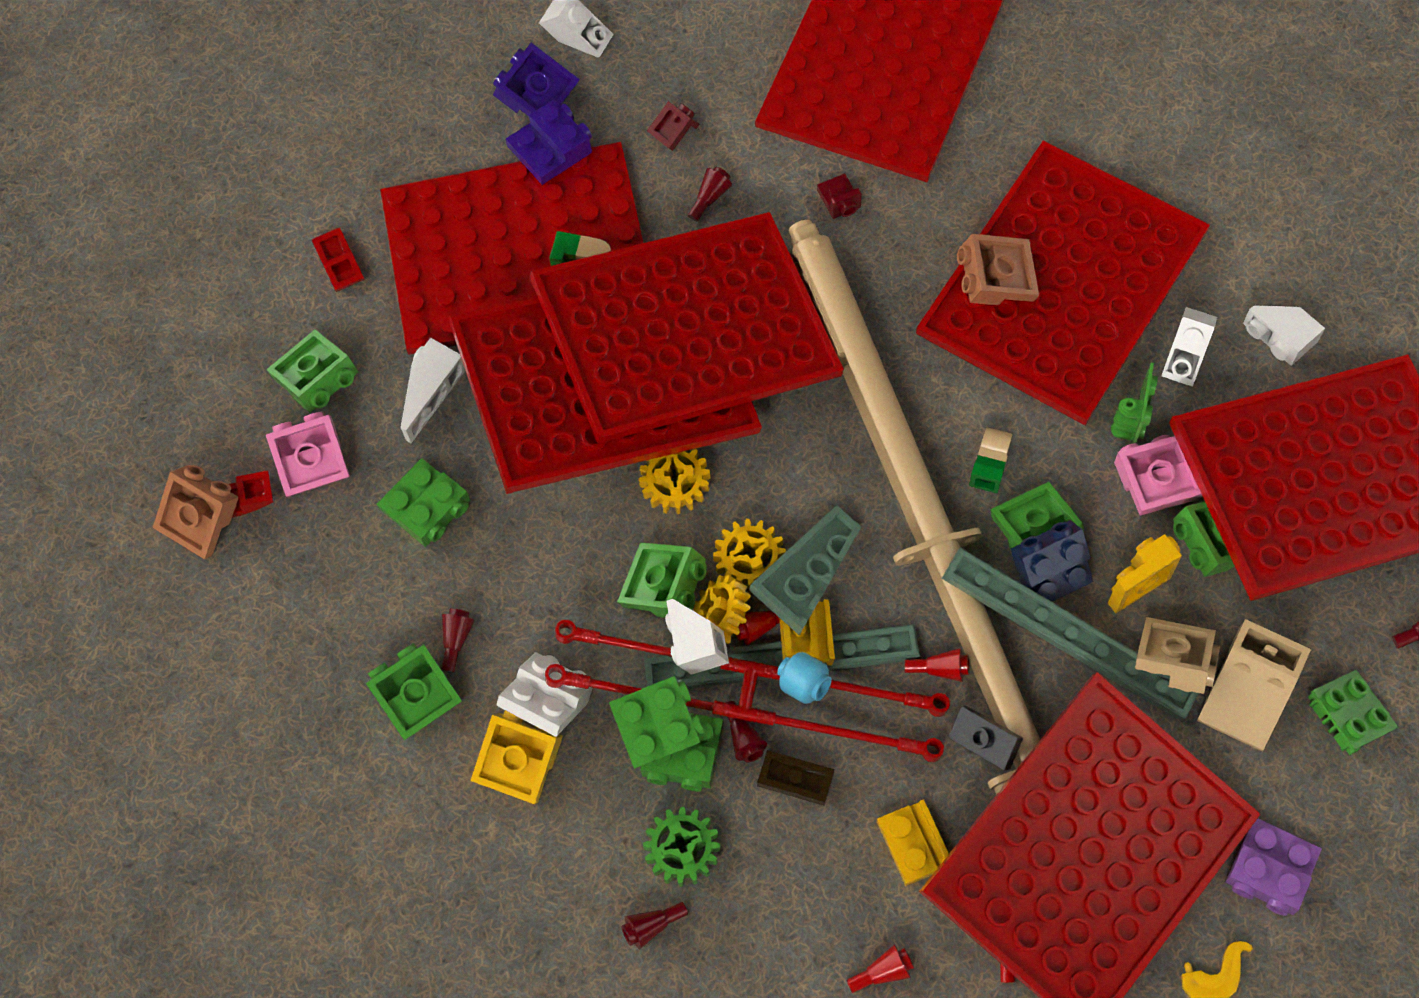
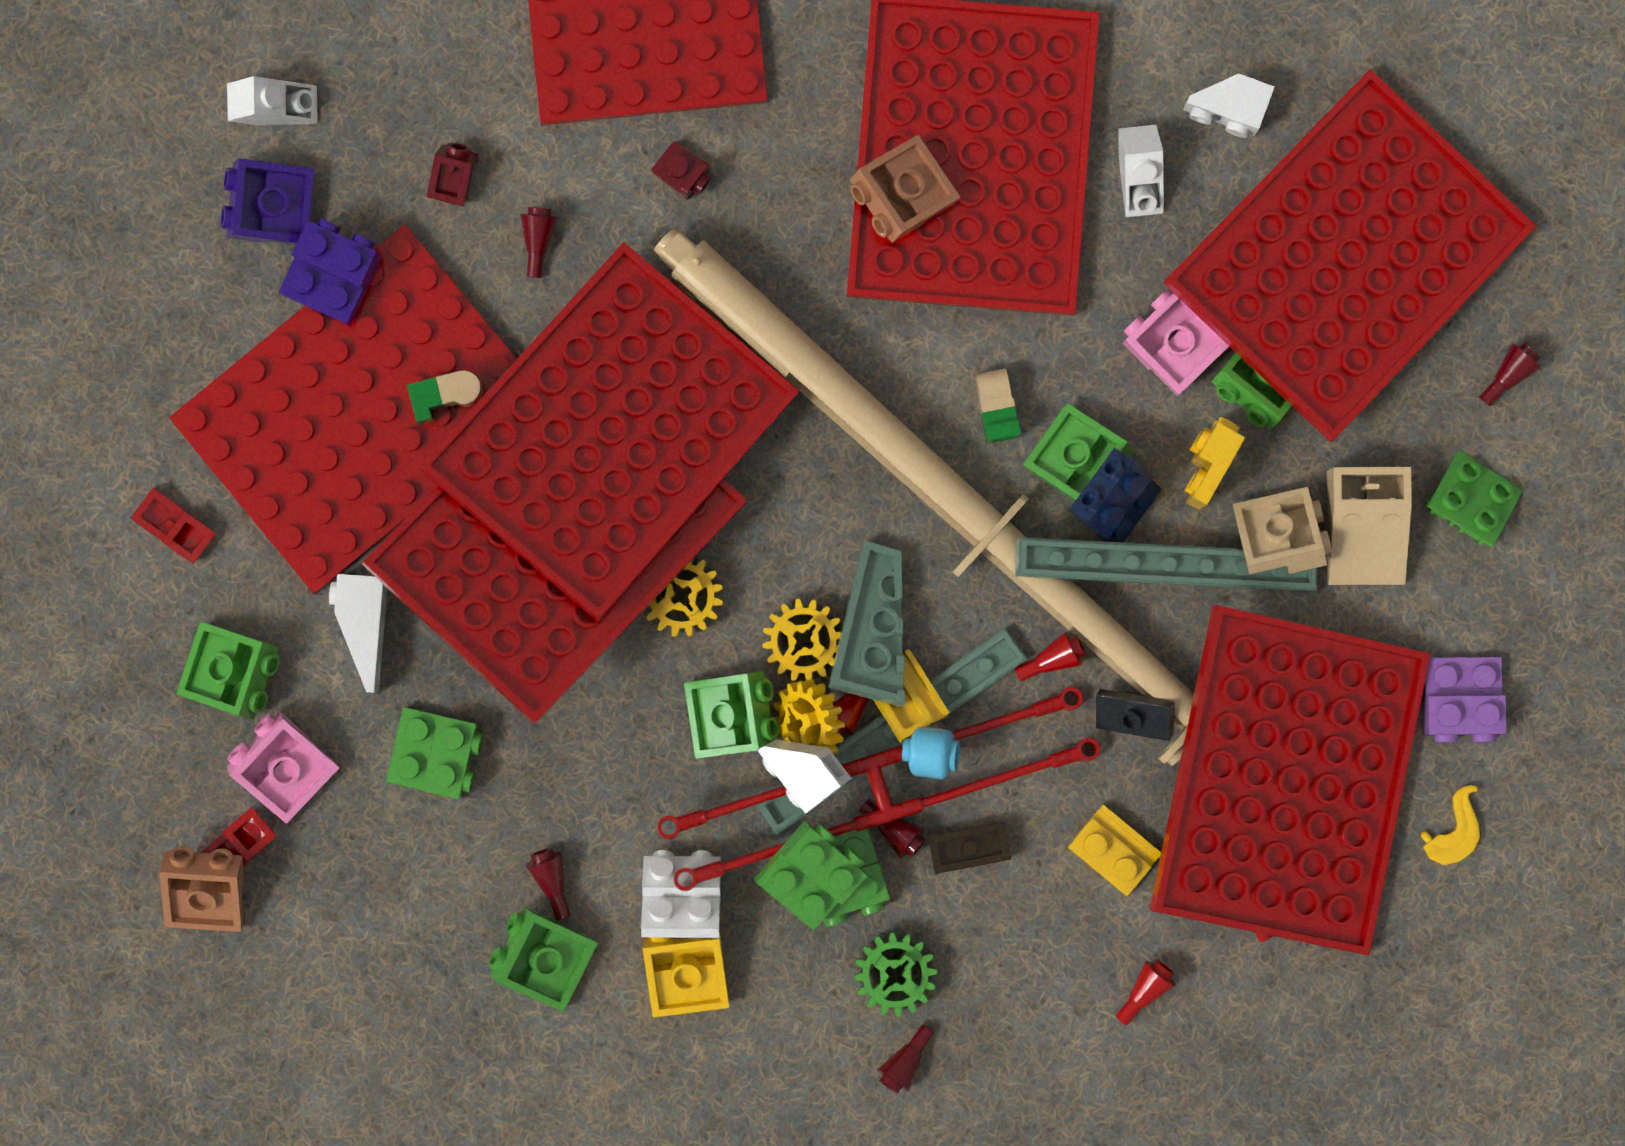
camera: 30 degrees left, 20 degrees up
(1135, 414) = (1130, 290): bright green hinge -> none

